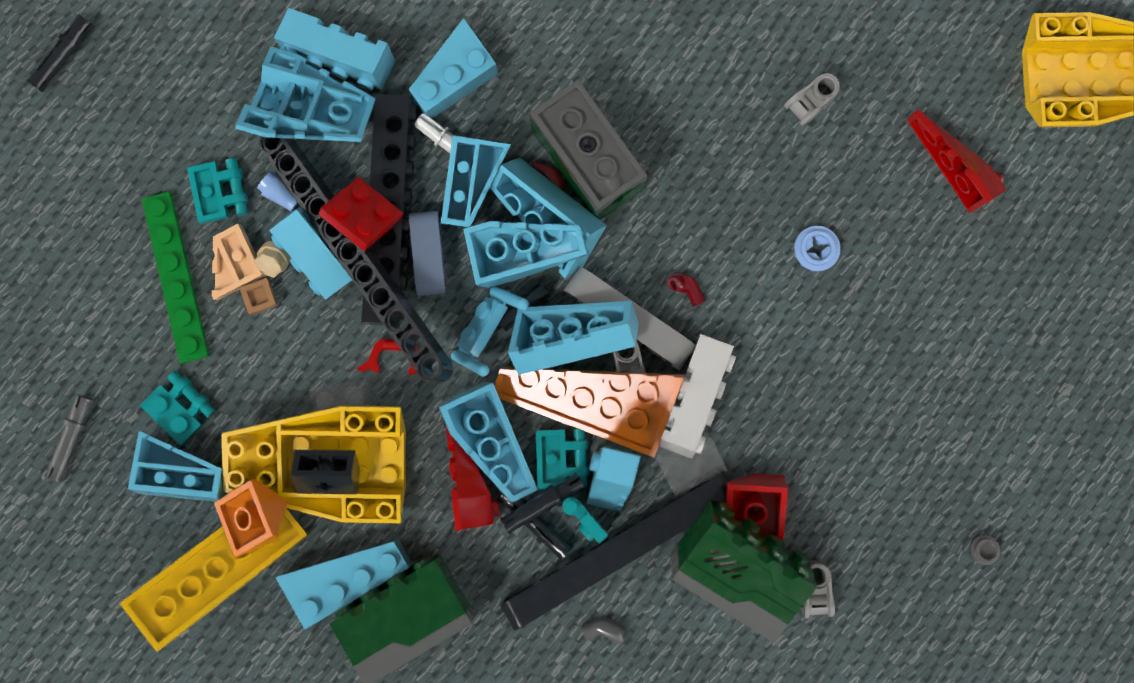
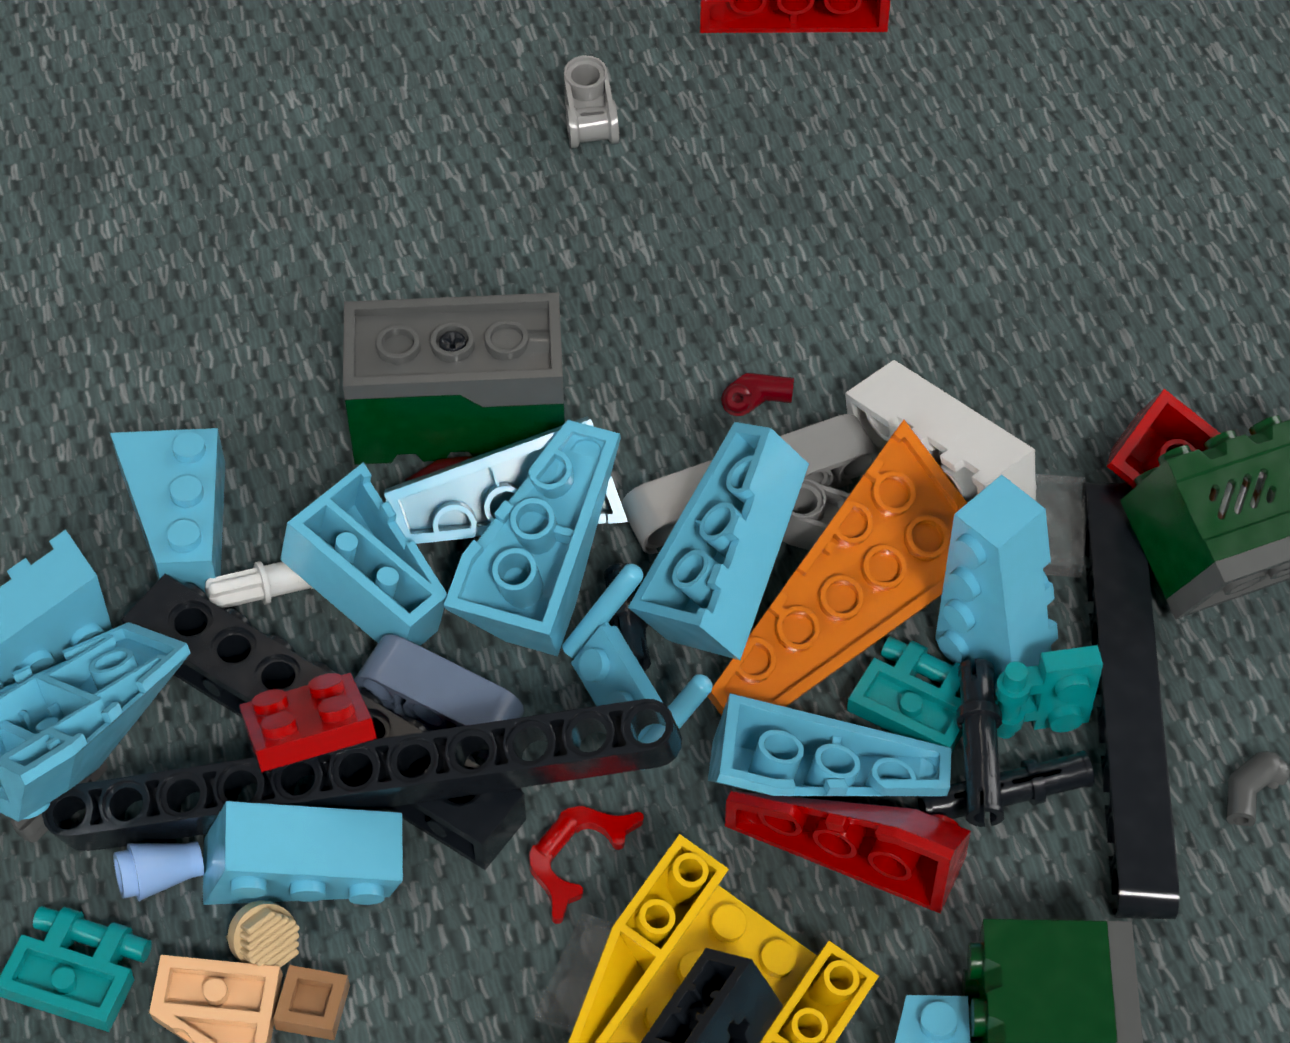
camera: 60 degrees left, 30 degrees down
(821, 236) = (797, 199): light blue gear -> none

